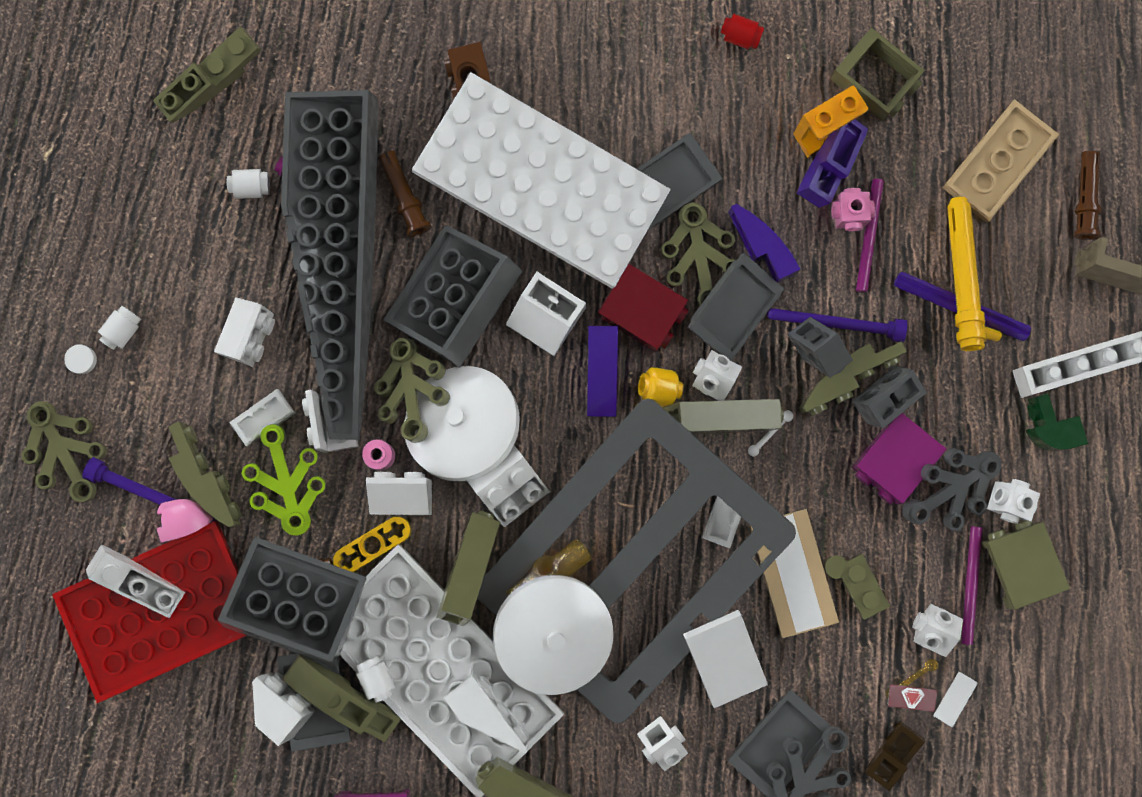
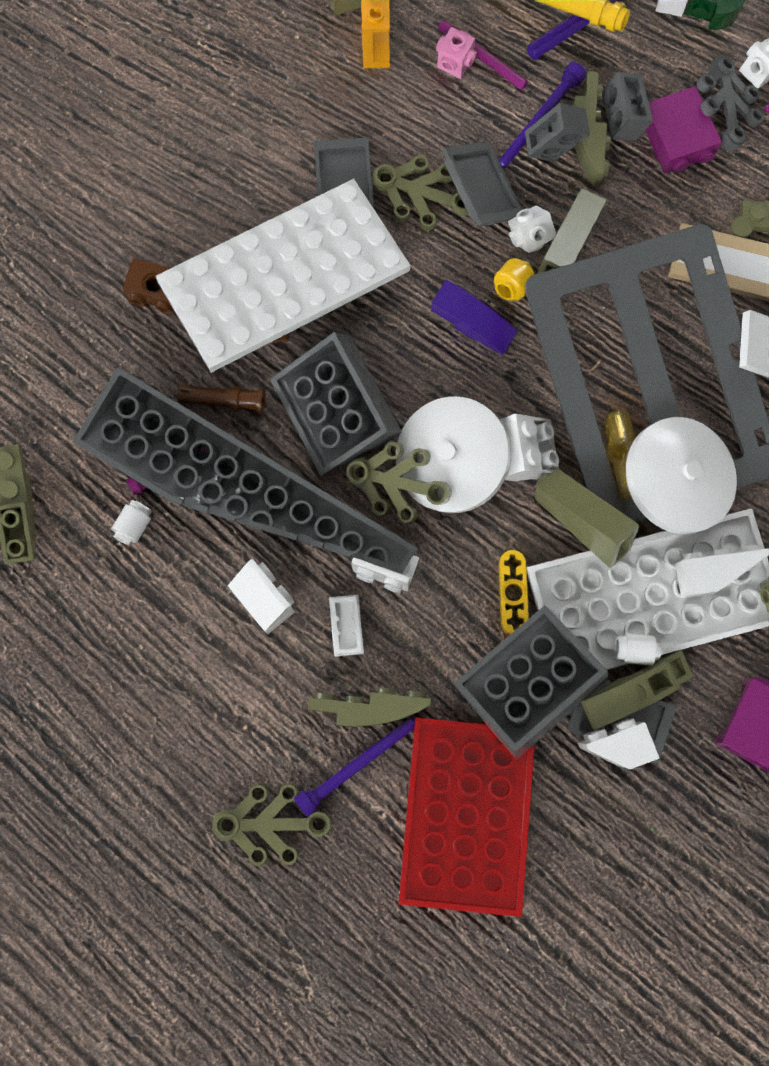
camera: 60 degrees left, 5 degrees down
(80, 359) = (197, 761): white tile -> none
(119, 328) = (190, 708): white brick -> none
(133, 581) = (430, 818): white slope -> none
(181, 518) = (397, 745): bright pink brick -> none
(285, 485) = (419, 635): lime plant -> none
(385, 461) = (439, 549): bright pink brick -> none
(399, 495) = (486, 541): white slope -> none
(545, 313) = (398, 334): white slope -> none
(643, 309) = (441, 255): dark red brick -> none
(721, 524) = (657, 293): white plate -> none
(742, 31) = (256, 55): red brick -> none
(753, 450) = (608, 238): white hinge -> none
(764, 244) = (442, 132): dark purple slope -> none
(832, 164) = (408, 49): dark purple slope -> none

